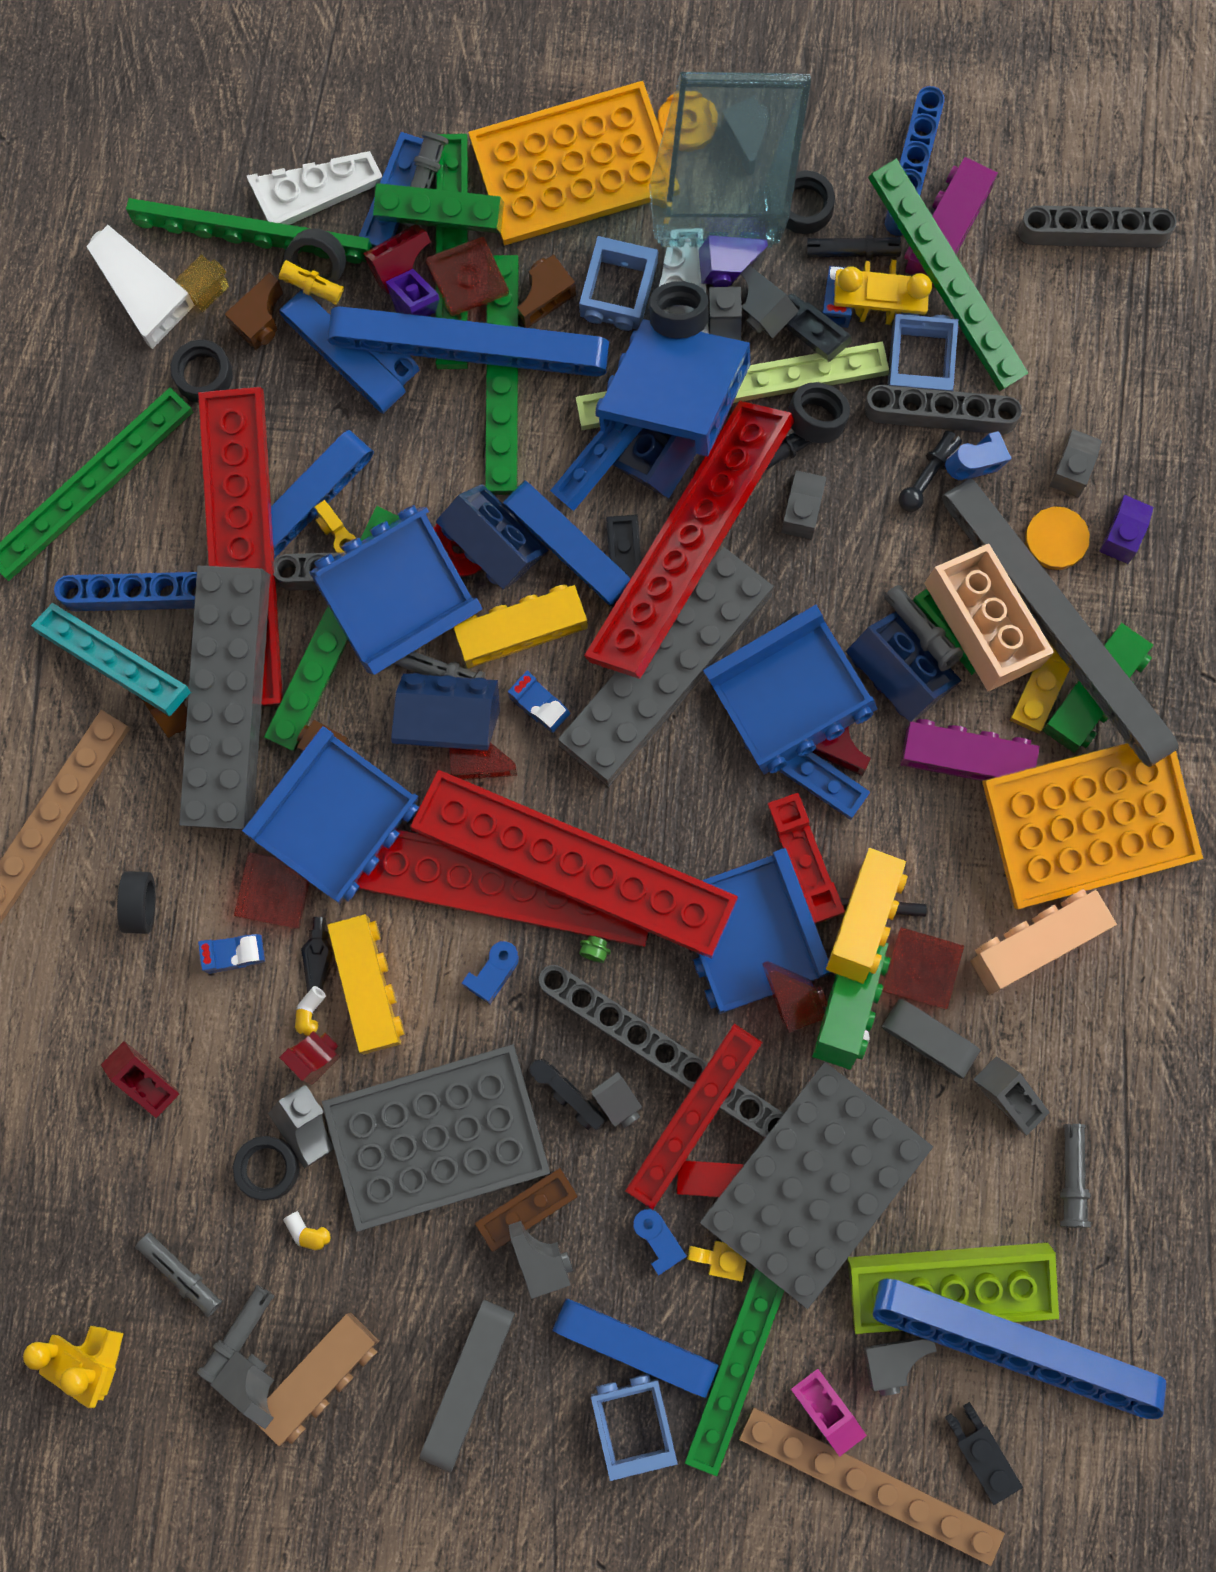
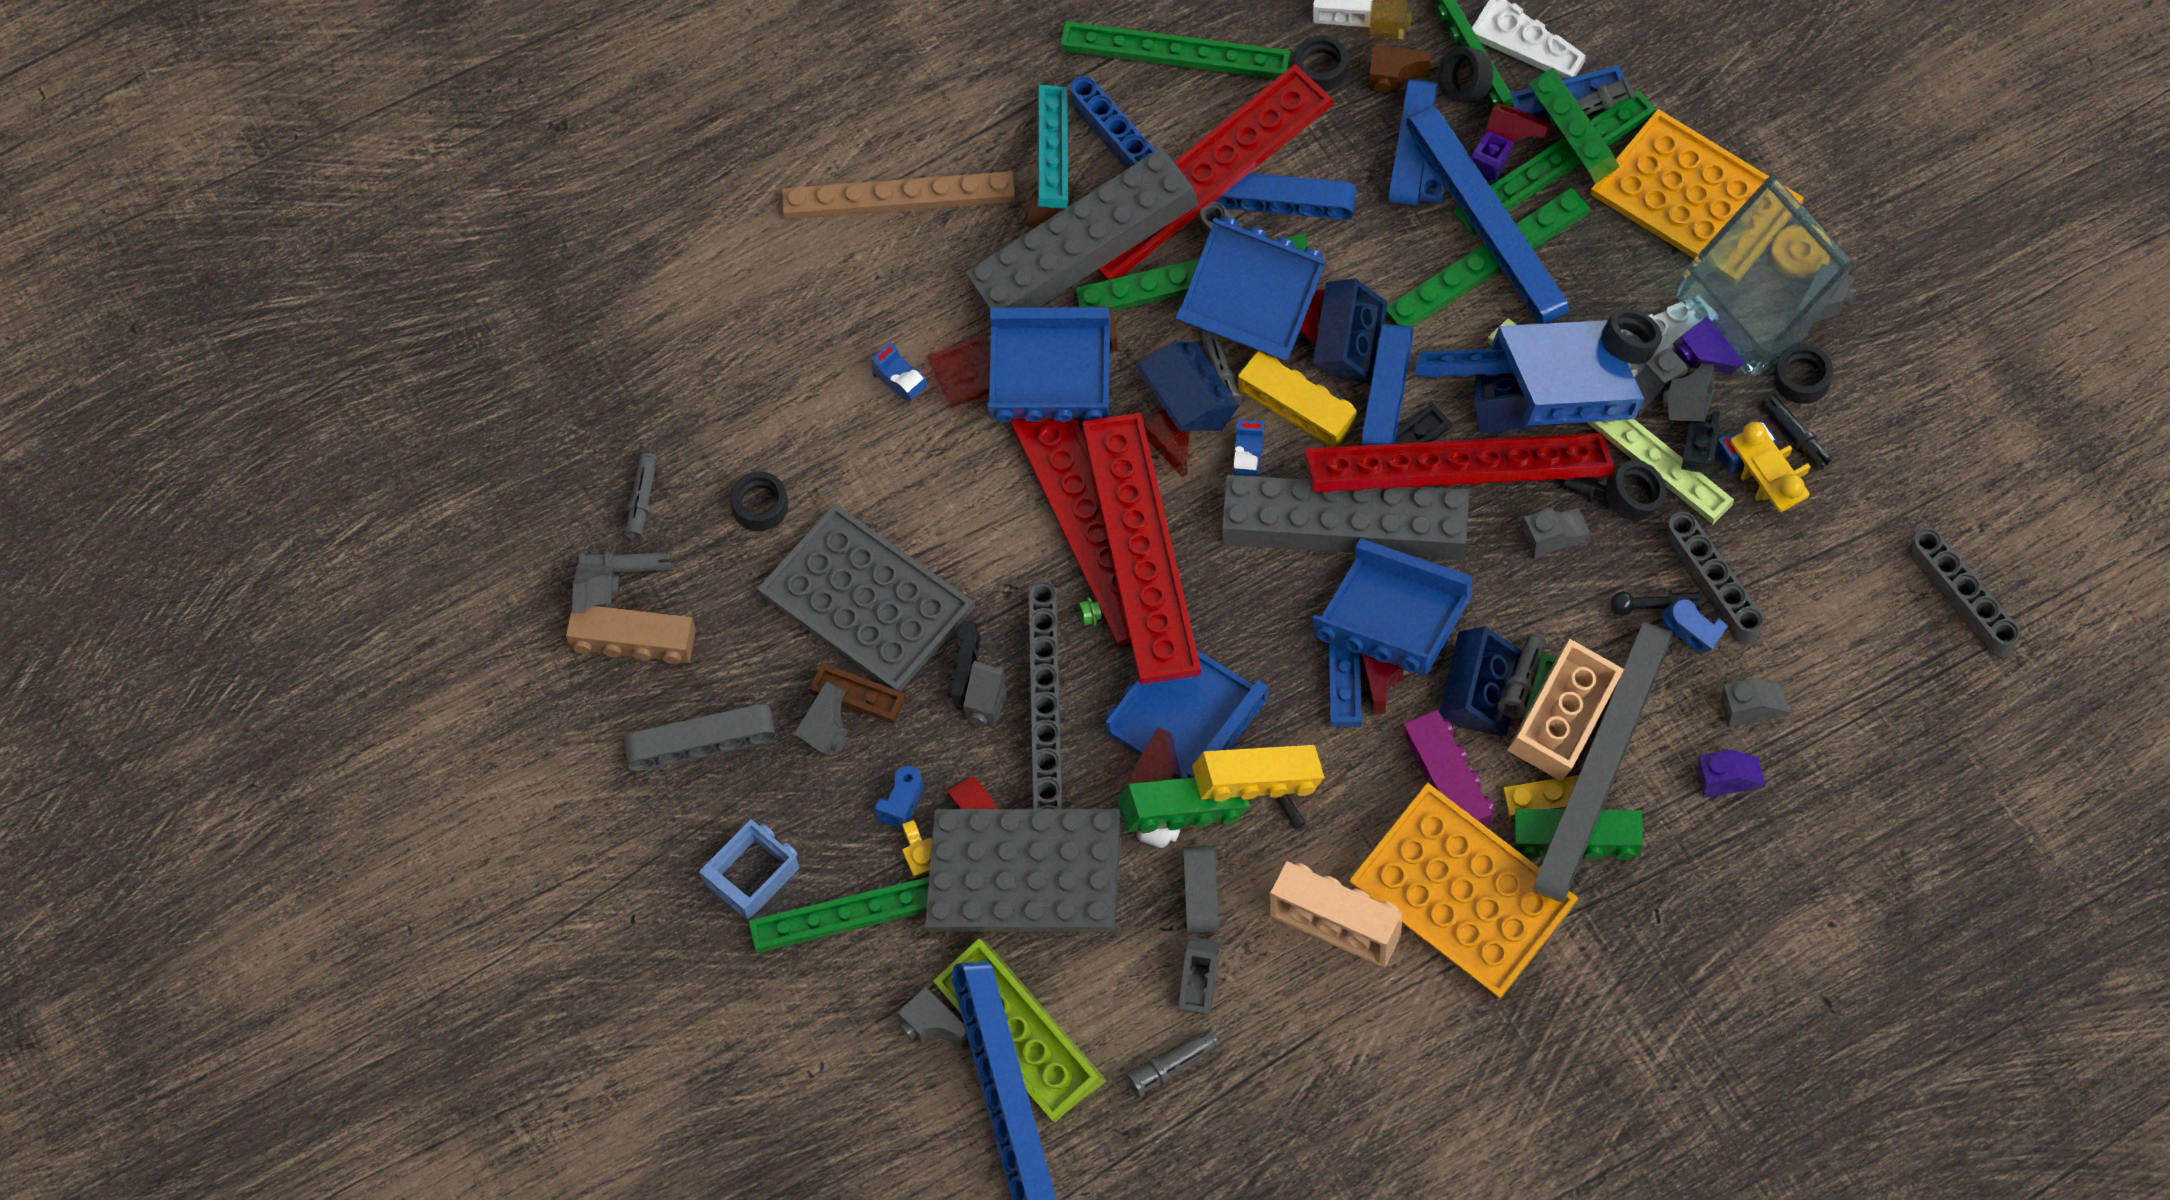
camera: 55 degrees right, 15 degrees down
(78, 1370) = (526, 473): yellow piece -> none
(136, 902) = (887, 285): black tyre -> none
(139, 1079) = (761, 376): dark red arch -> none
(302, 1126) = (807, 501): dark grey arch -> none
(305, 1008) = (896, 449): arm -> none
(305, 1236) = (729, 561): arm -> none
(311, 282) = (1444, 82): yellow pin -> none
(311, 1057) = (860, 473): dark red arch -> none
(316, 954) = (940, 432): black piece -> none
(329, 522) = (1274, 220): yellow plate -> none
(365, 985) = (943, 475): yellow brick -> none
(467, 276) = (1539, 181): clear red plate -> none
(495, 973) = (1019, 555): blue leg -> none
(549, 290) = (1575, 245): reddish brown arch -> none
(622, 255) = (1649, 273): medium blue window -> none
(635, 1348) = (810, 833): blue beam -> none
(693, 1116) = (1012, 754): red tile -> none
(796, 836) = (1277, 708): red slope -> none
(829, 1412) = (858, 998): dark pink arch -> none
(872, 1486) = (826, 1069): medium nougat plate -> none
(919, 146) = (1914, 417): blue beam -> none
(923, 968) = (1251, 849): clear red plate -> none
(938, 327) = (1767, 513): medium blue window -> none
(947, 274) = (1822, 505): plate -> none
(958, 206) = (1876, 485): magenta brick -> none
(985, 1457) = (907, 1134): black hinge -> none
(1057, 538) = (1679, 730): light orange tile -> none

